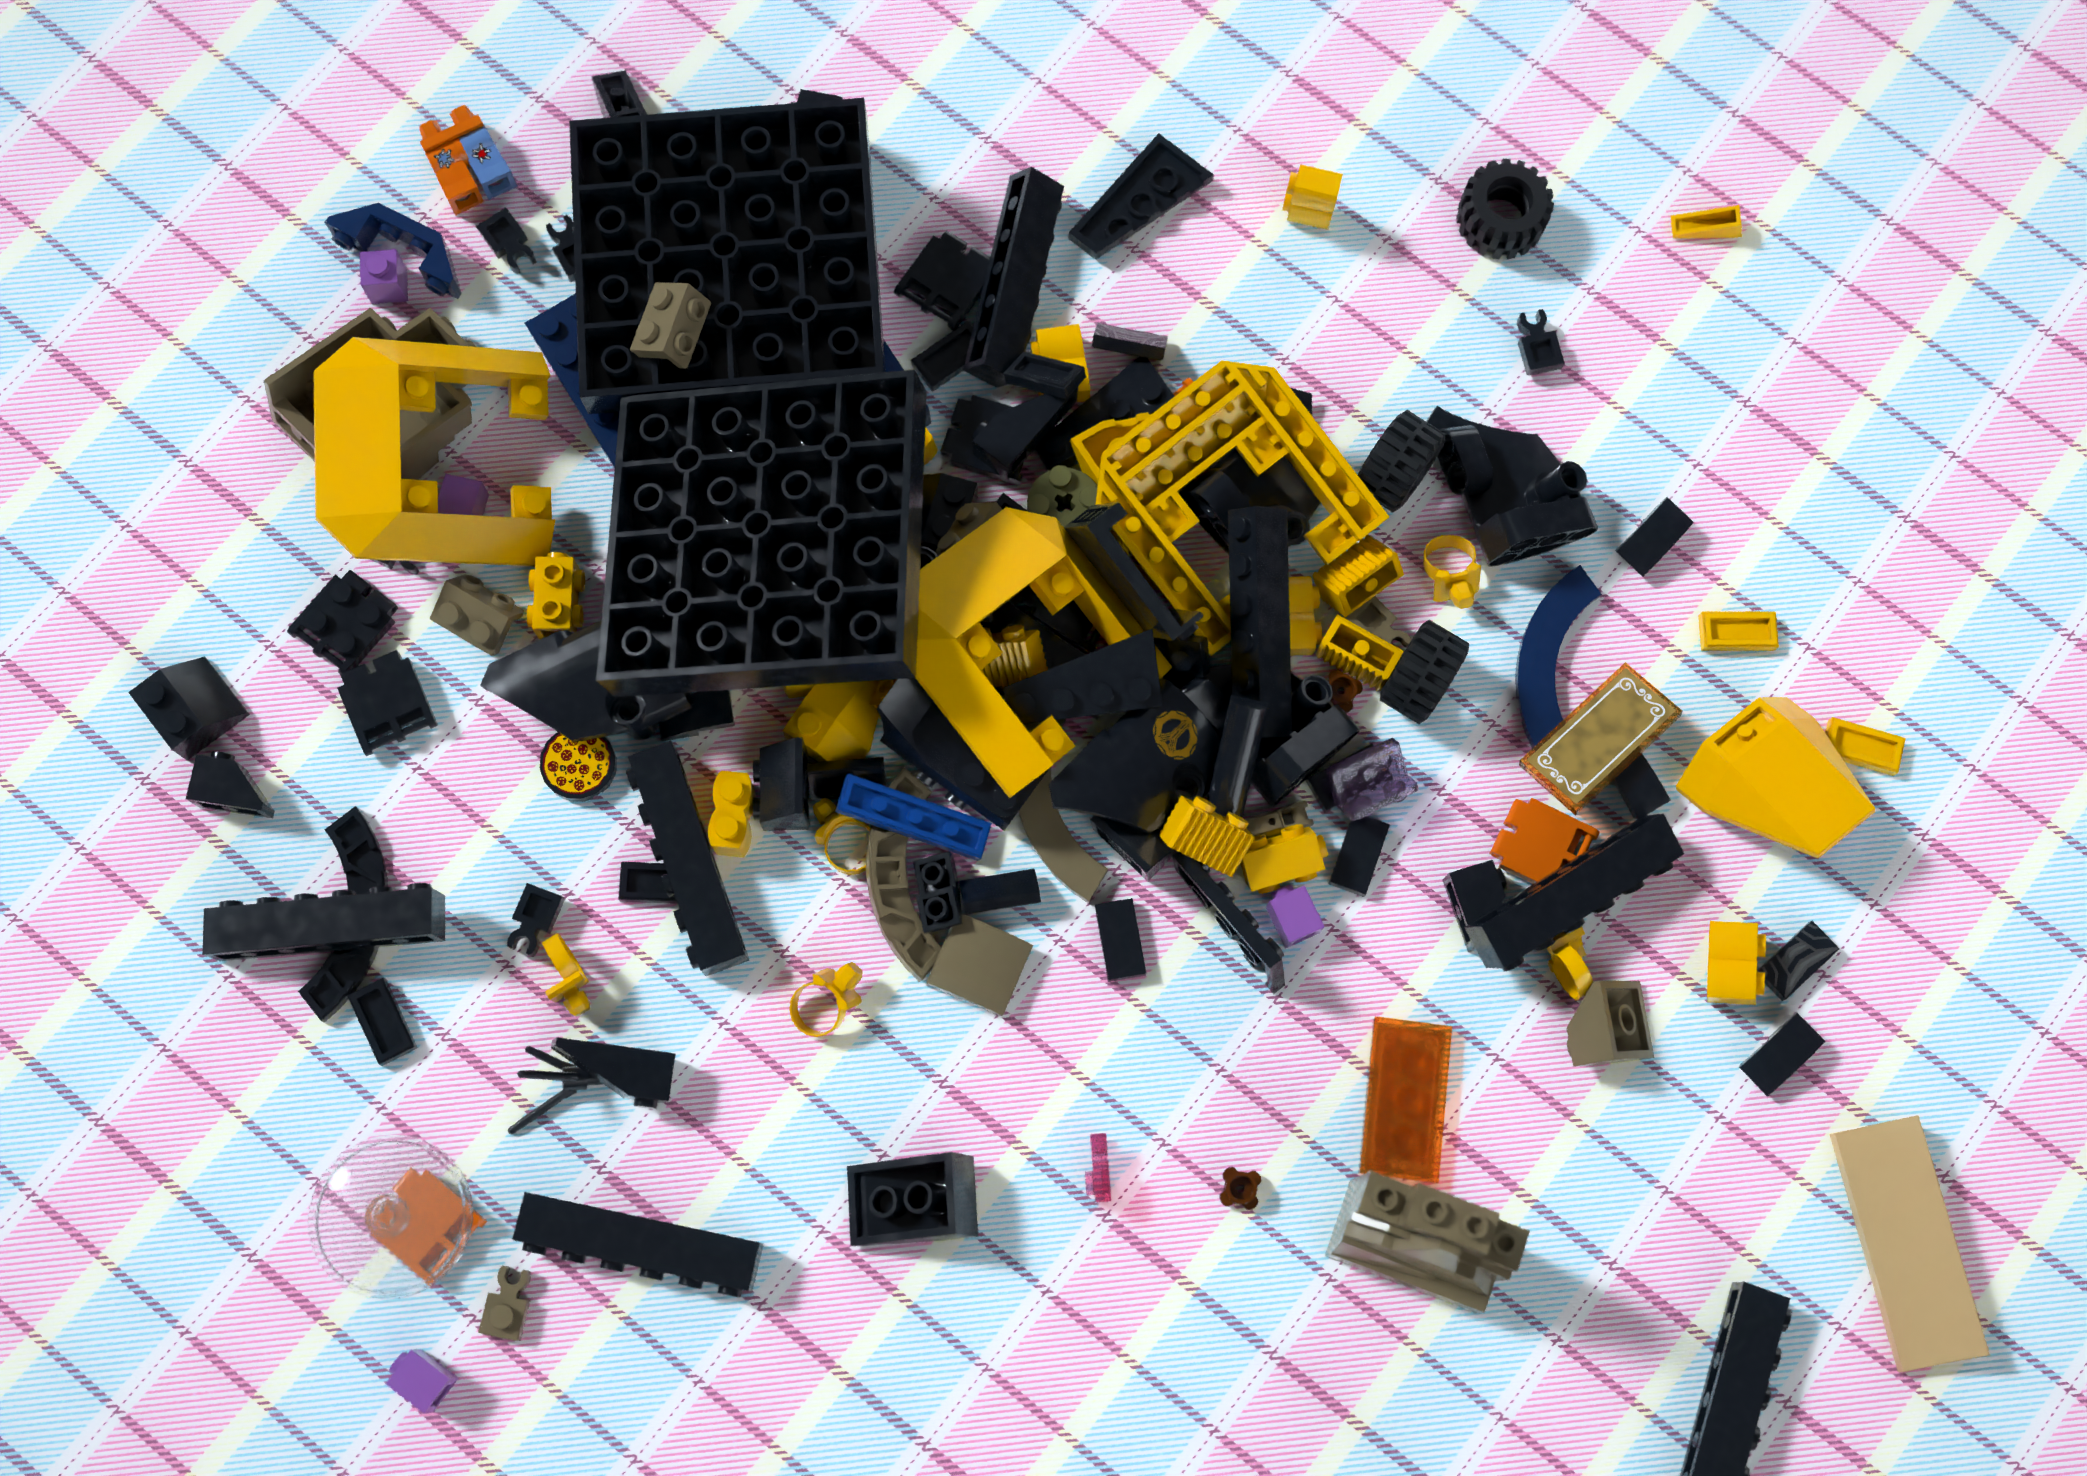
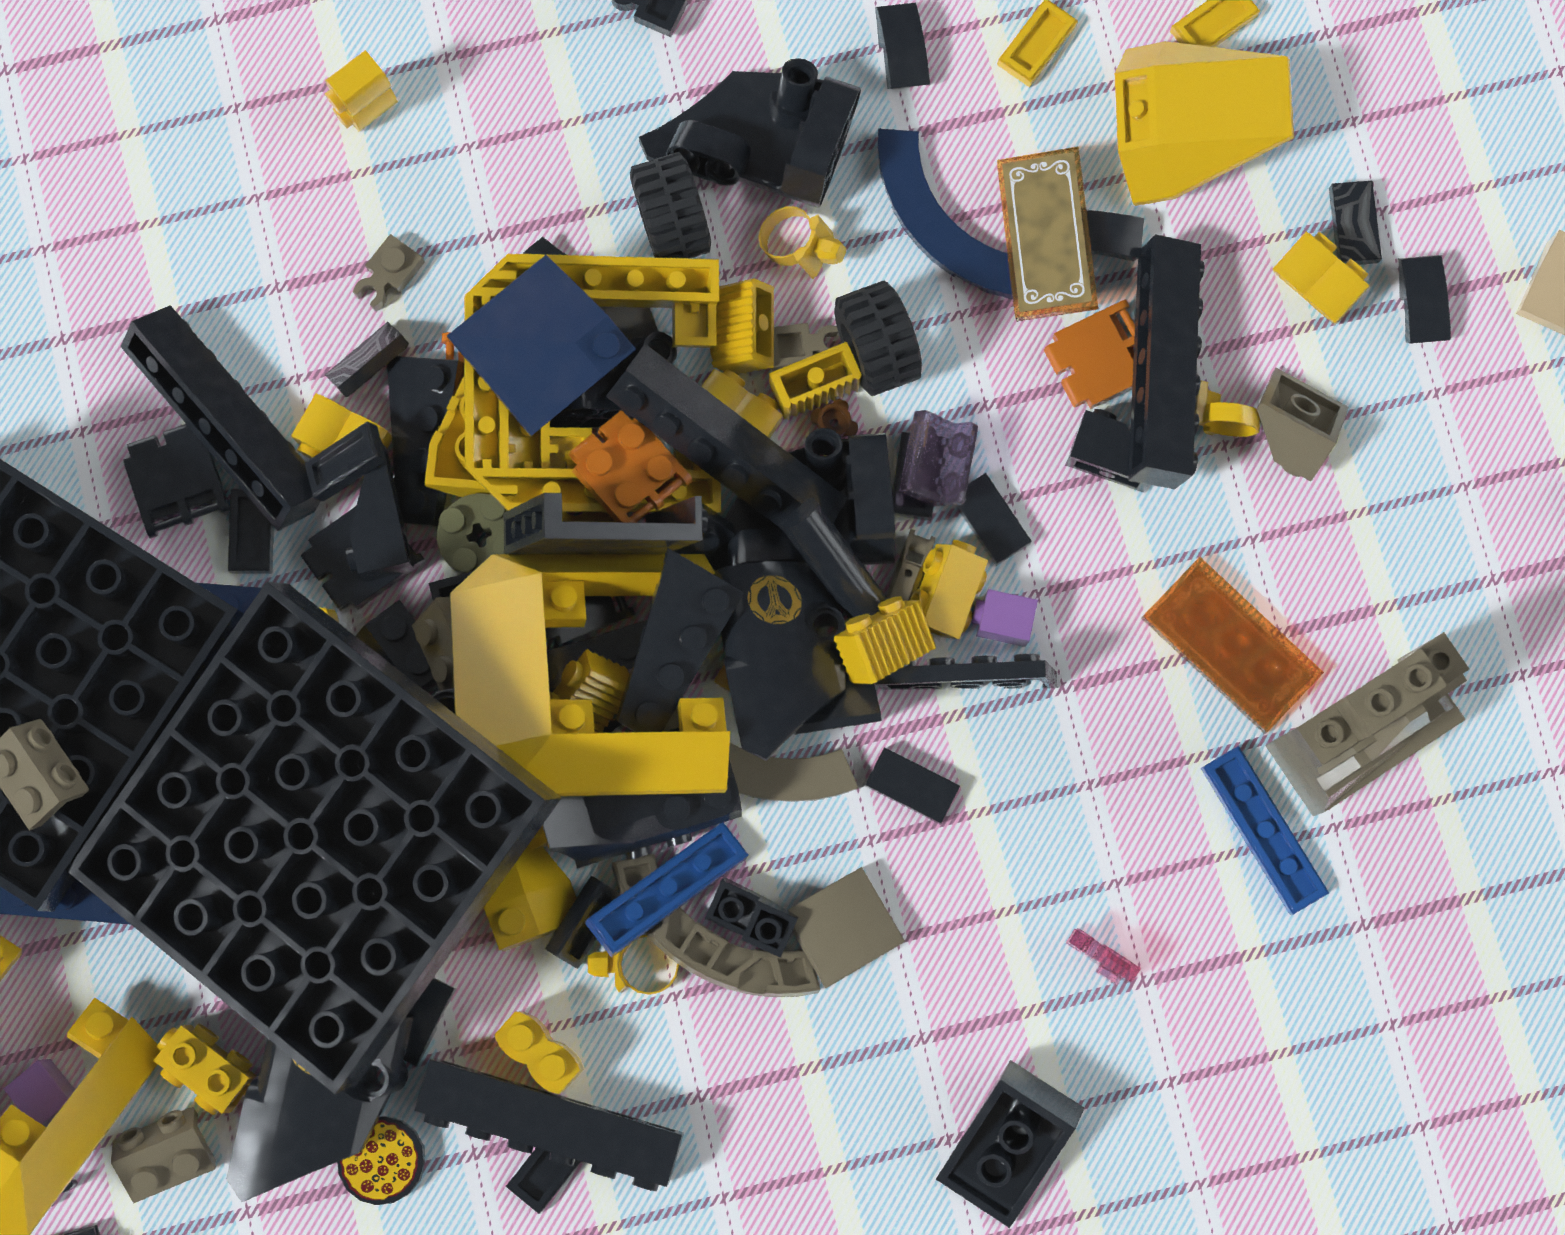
camera: 50 degrees left, 5 degrees up
(783, 786) = (549, 987): black slope -> none
(841, 984) = (768, 1067): yellow piece -> none
(1000, 891) = (791, 860): black tile -> none
(1142, 193) = (231, 236): black wing -> none
(1190, 564) = (627, 468): none -> orange plate
(1209, 310) = (391, 267): none -> dark tan plate
(1228, 437) = (540, 344): none -> dark blue slope
(1248, 1181) = (1218, 845): reddish brown plate -> none
(1285, 1225) = (1264, 830): none -> blue tile

